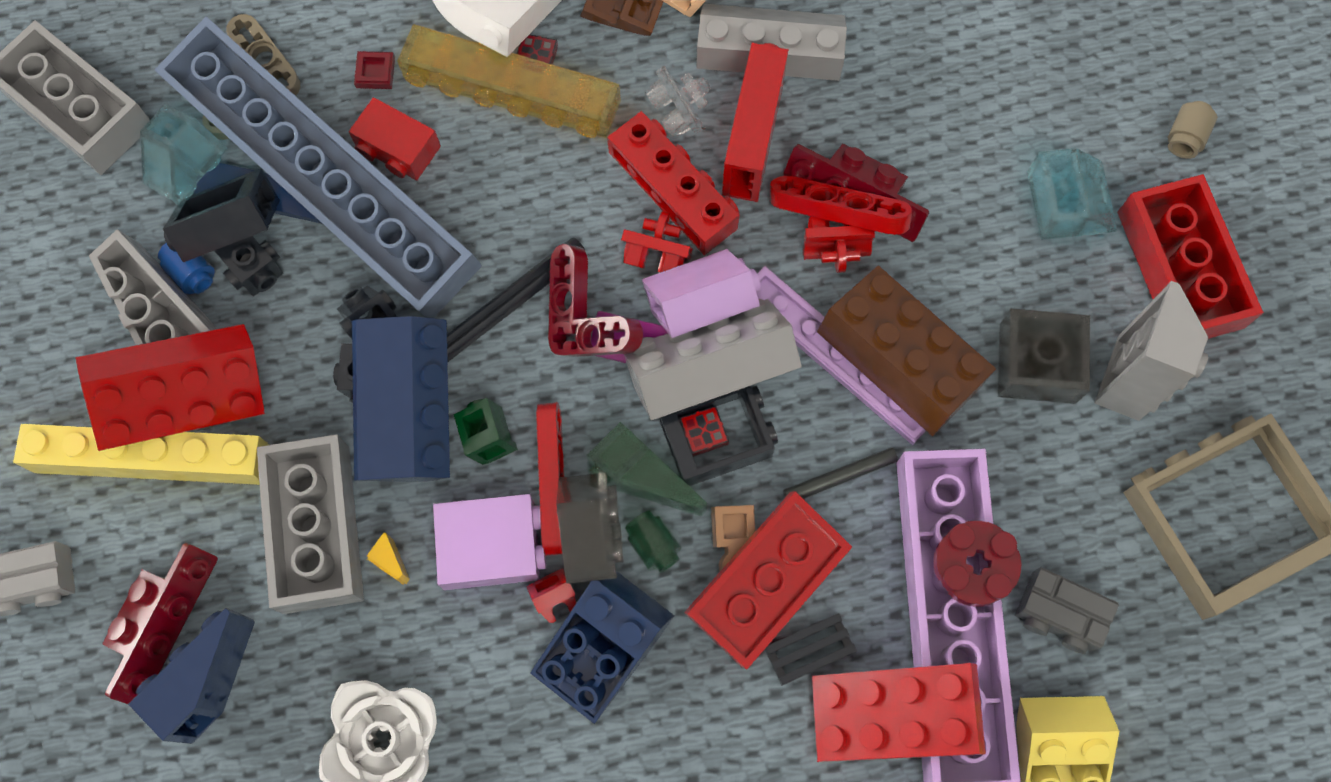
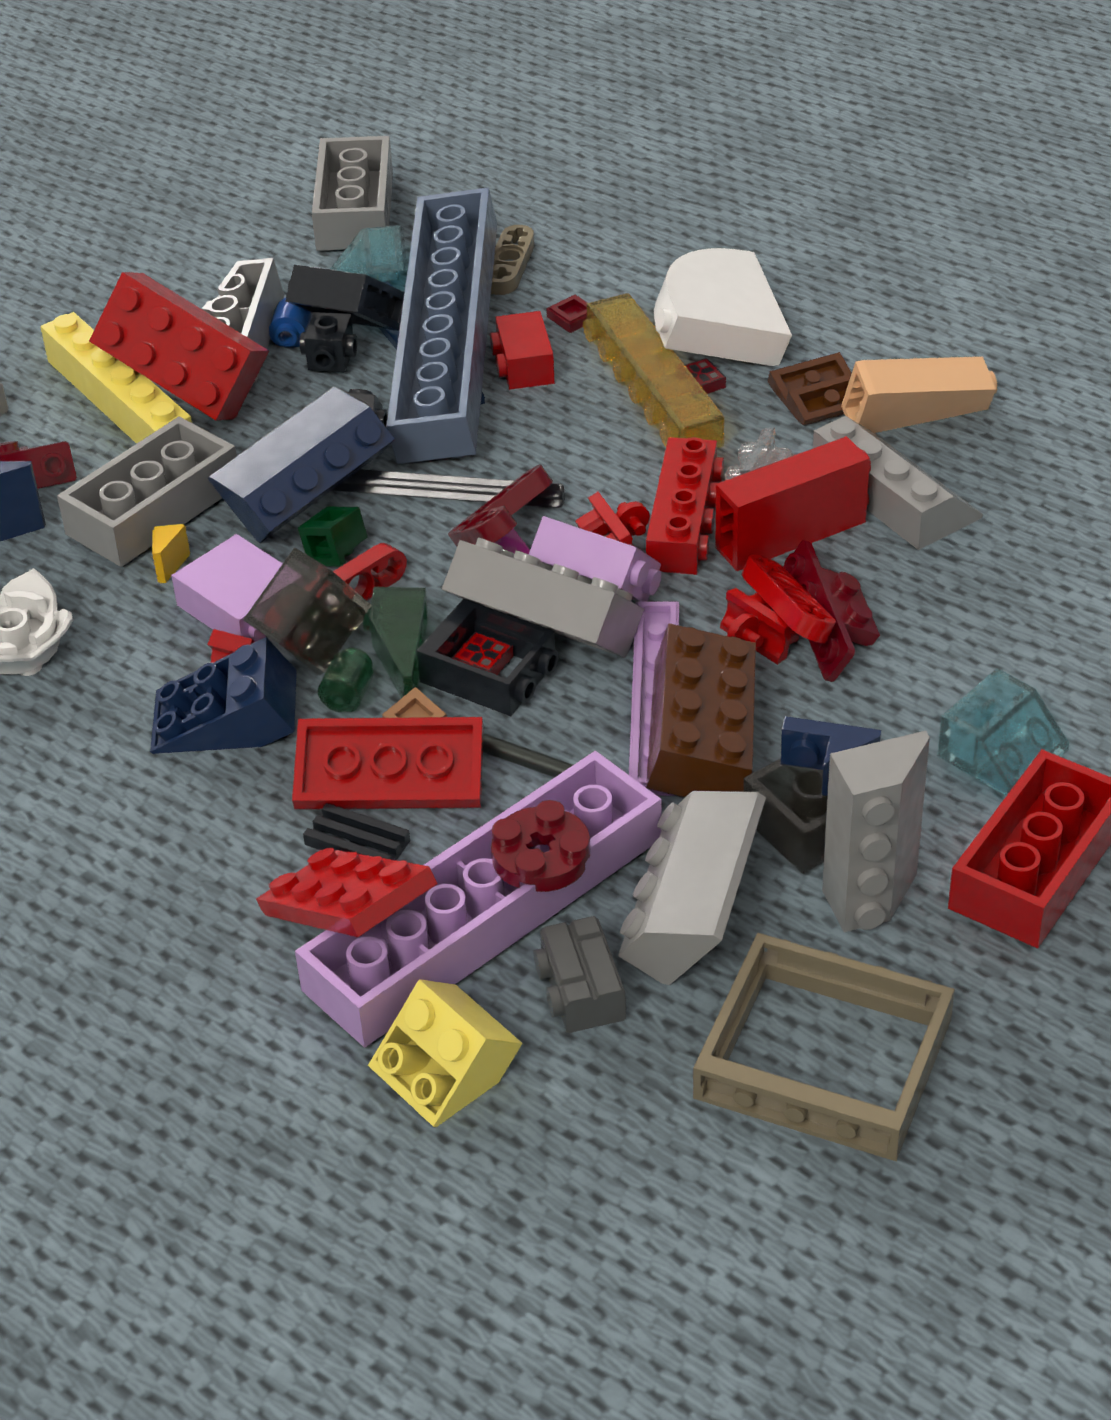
camera: 50 degrees right, 30 degrees down
(1057, 317) = (811, 742): none -> dark blue slope
(1062, 483) = (690, 881): none -> light grey slope

